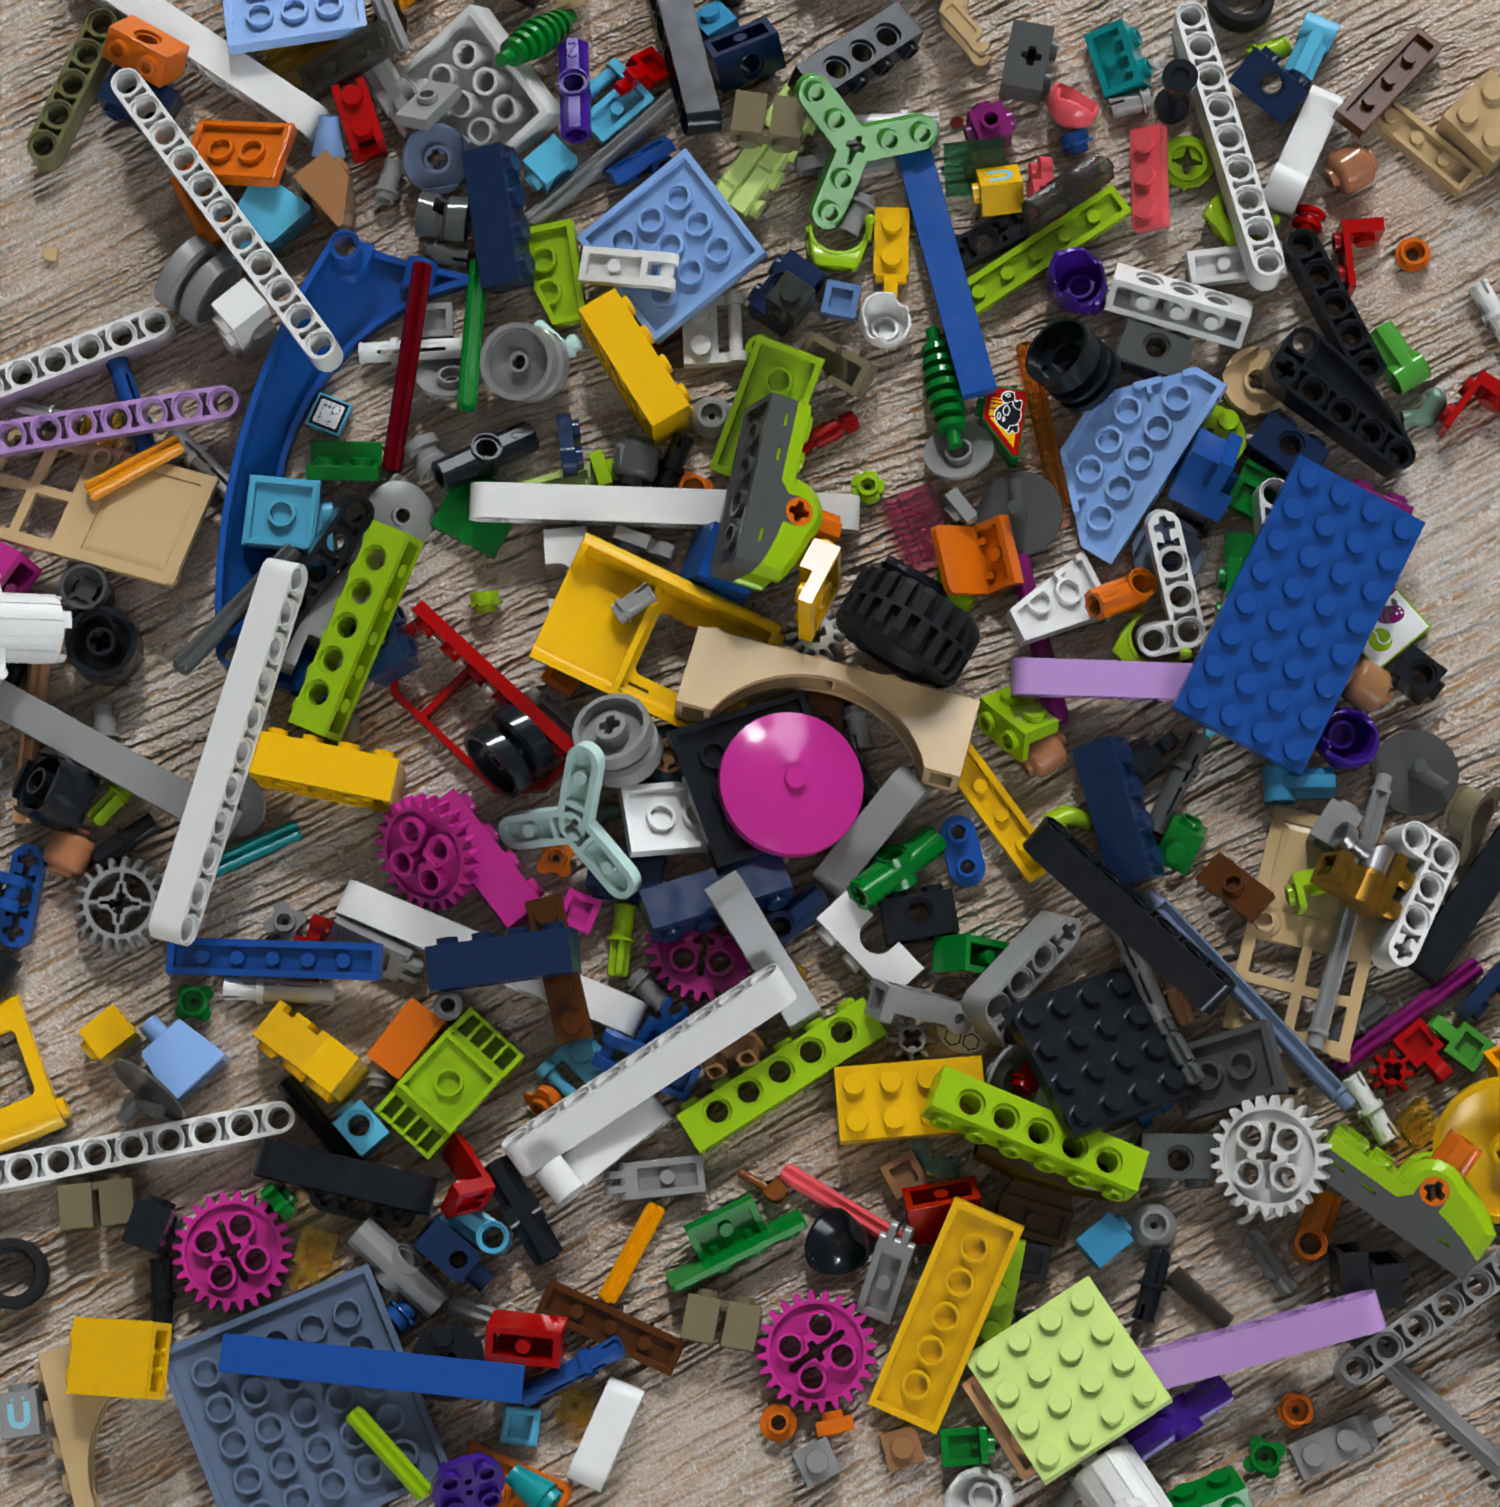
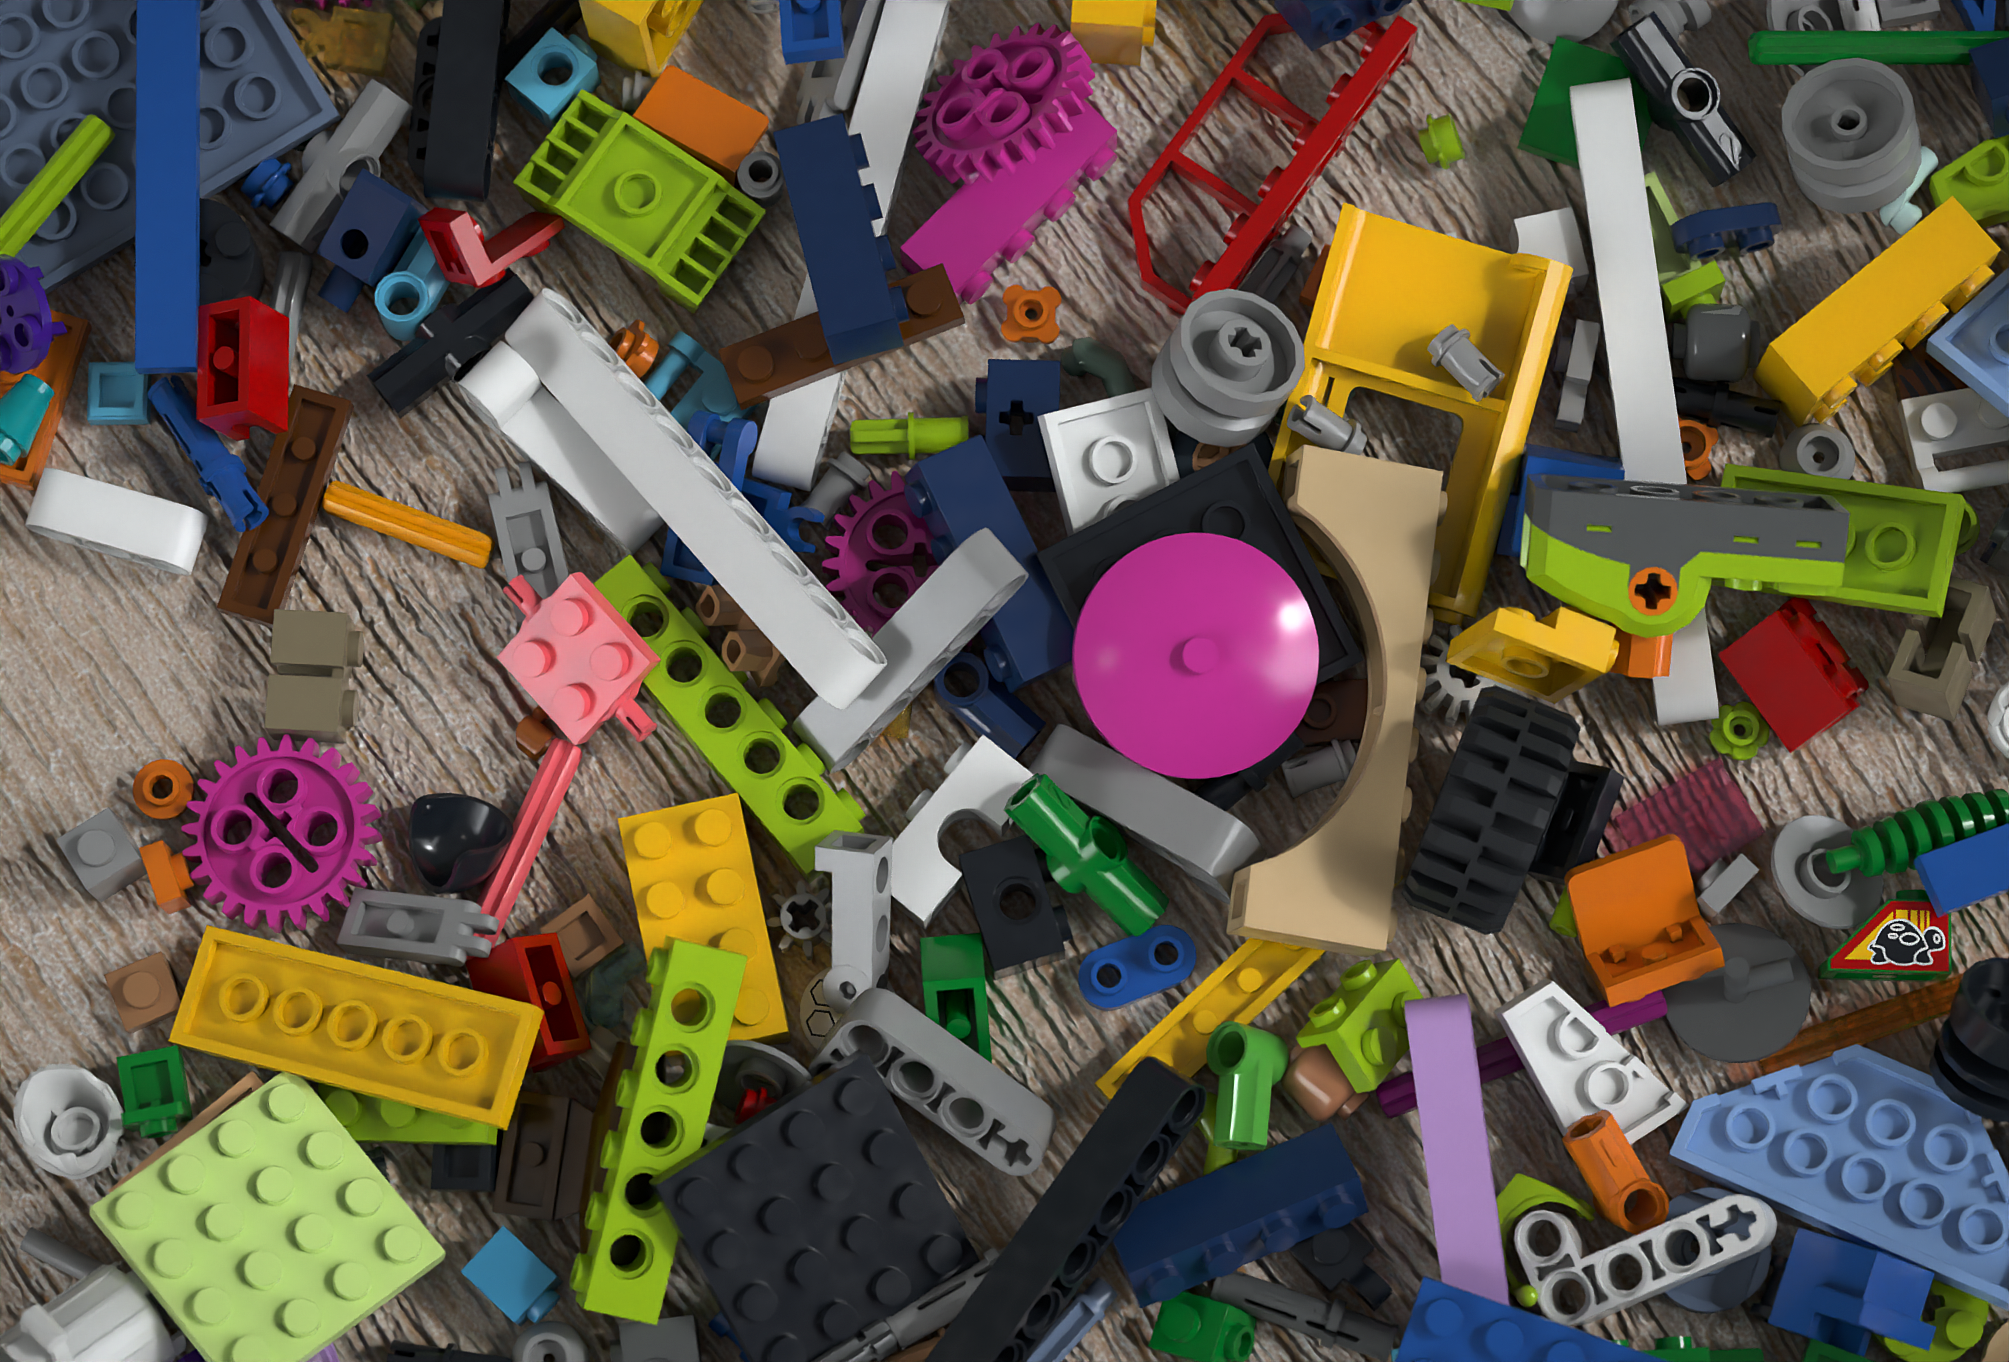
camera: 85 degrees right, 0 degrees up
(509, 750) = (1194, 208): black wheel -> none
(580, 801) = (1078, 318): light aqua piece -> none
(580, 1416) = (167, 484): clear yellow plate -> none
(581, 910) = (948, 364): dark pink plate -> none
(663, 688) = (1326, 427): none -> light grey pin
(730, 1236) = (448, 672): green bracket -> none
(736, 1154) = (579, 658): none -> coral plate
(844, 451) = (1791, 678): none -> red brick
(1045, 795) = (1247, 1068): none -> bright green piece

